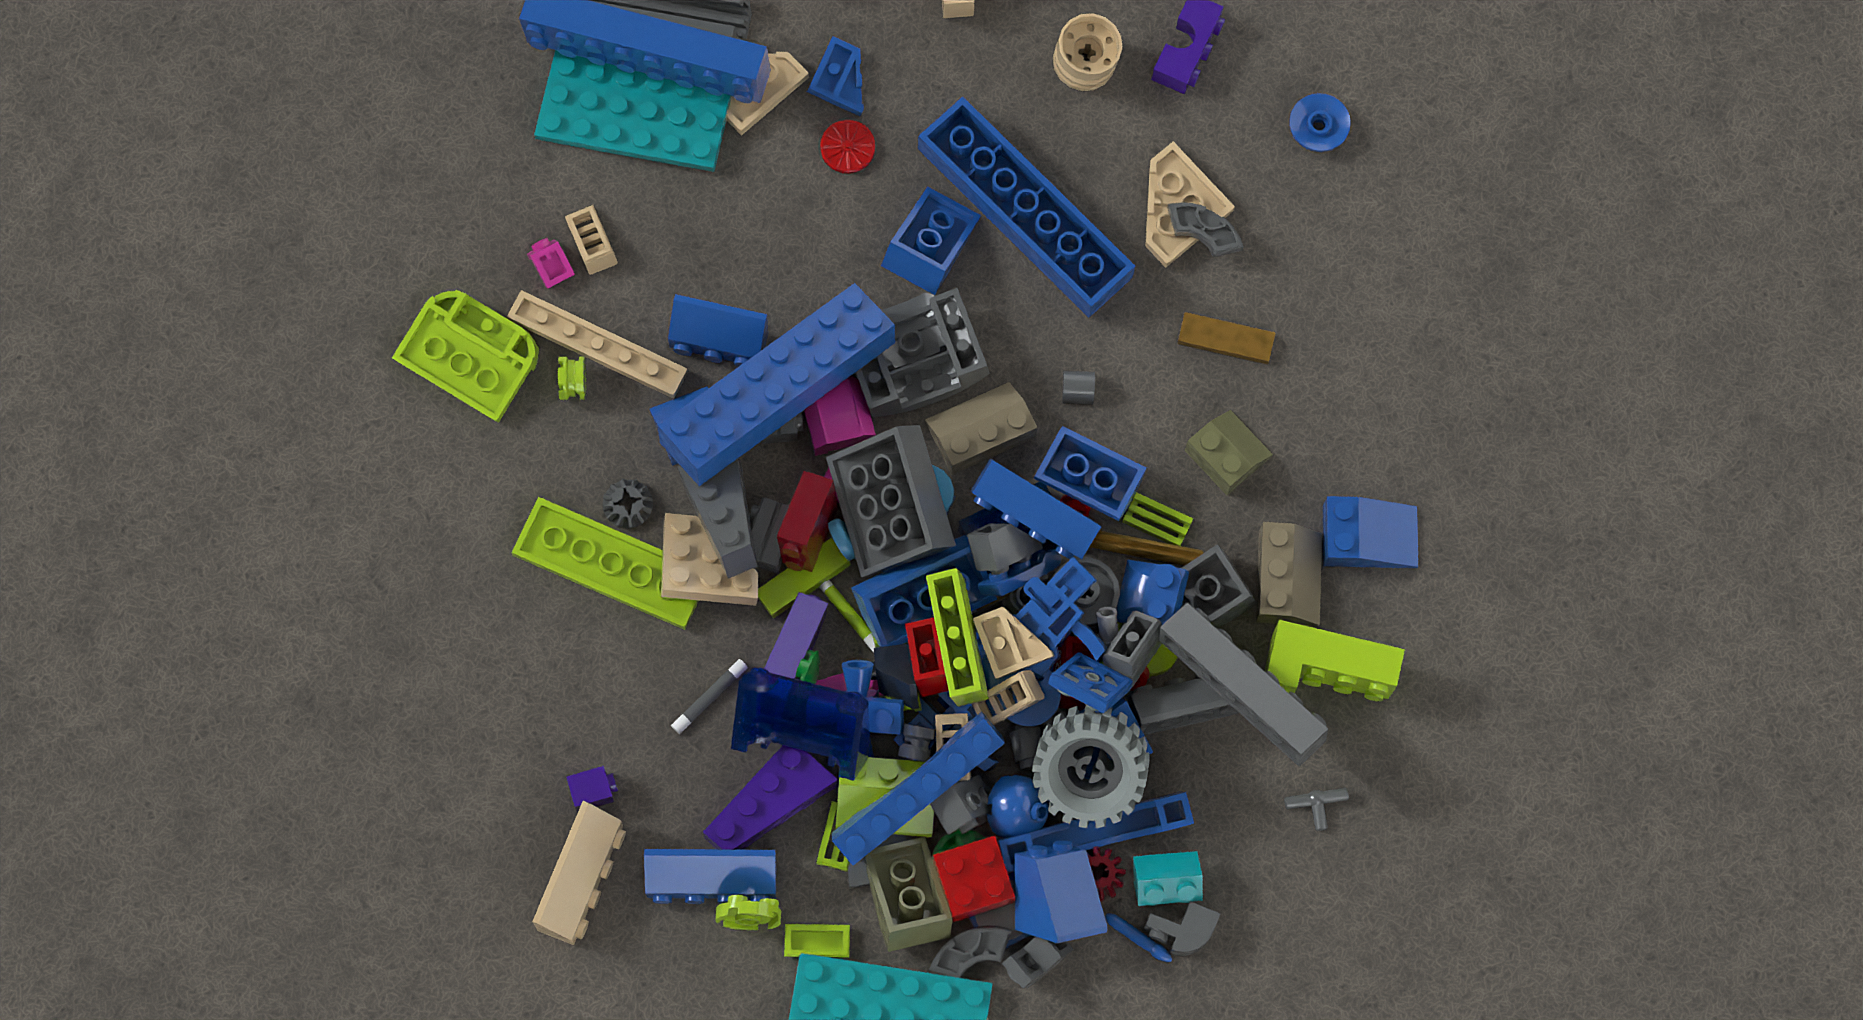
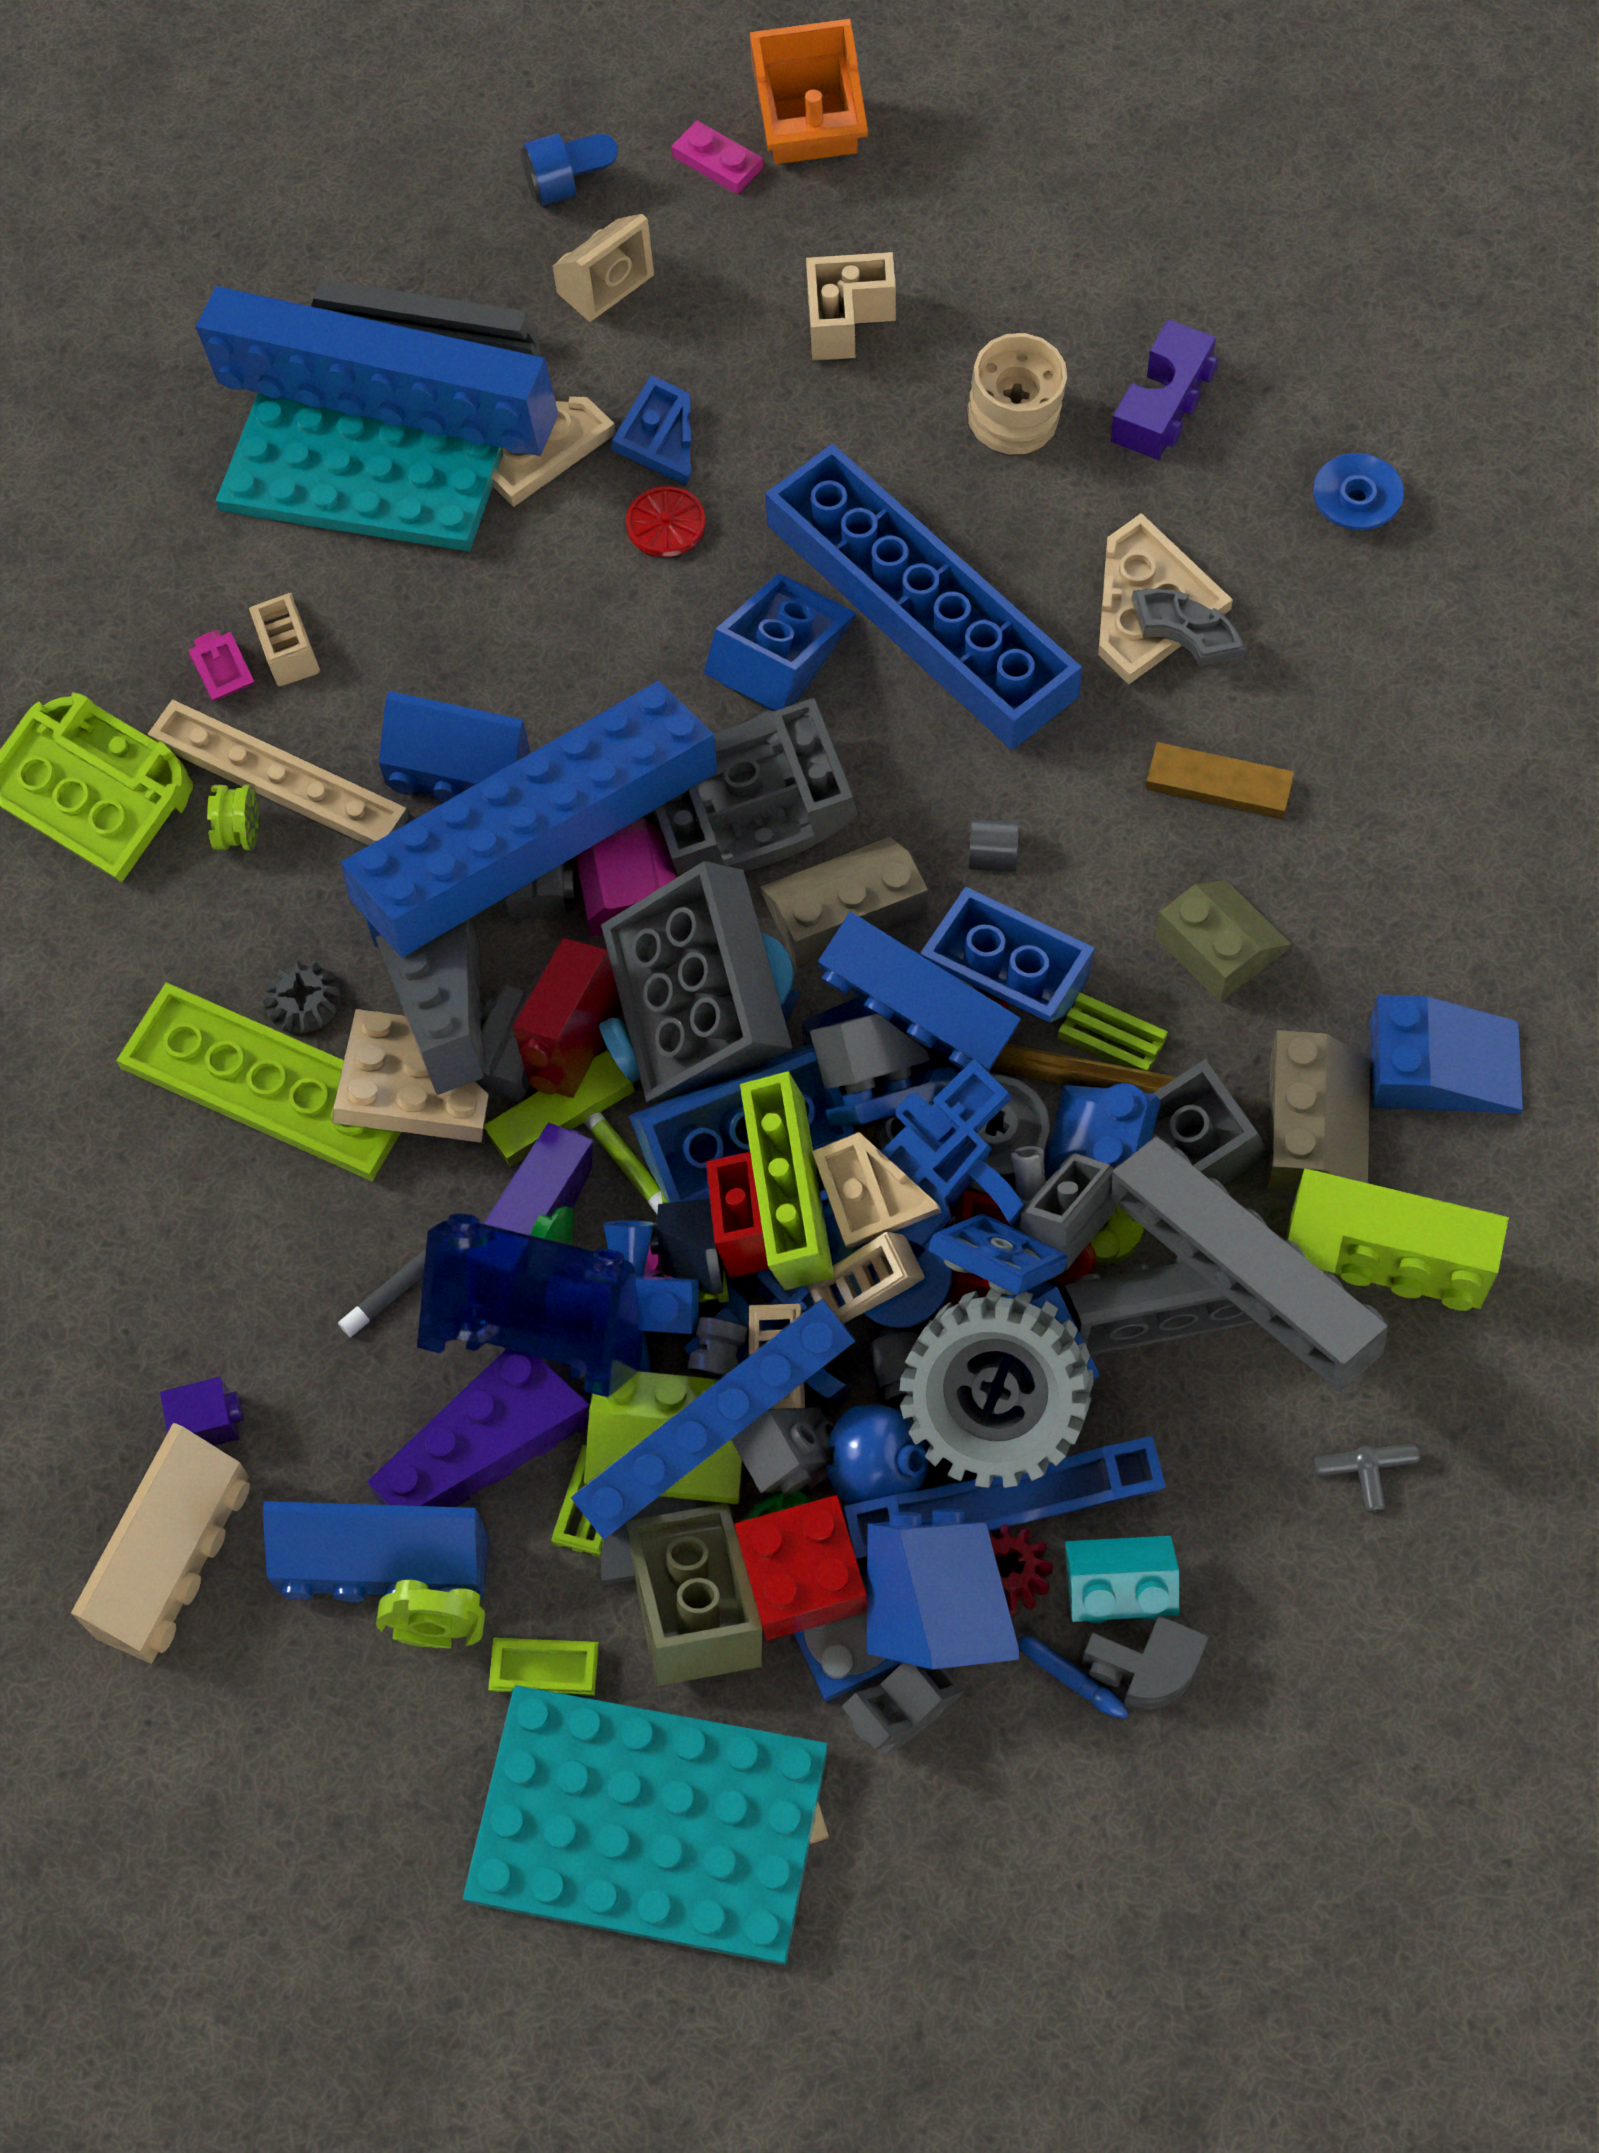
camera: 10 degrees right, 10 degrees down
(969, 948) = (793, 1683): dark grey tile -> none

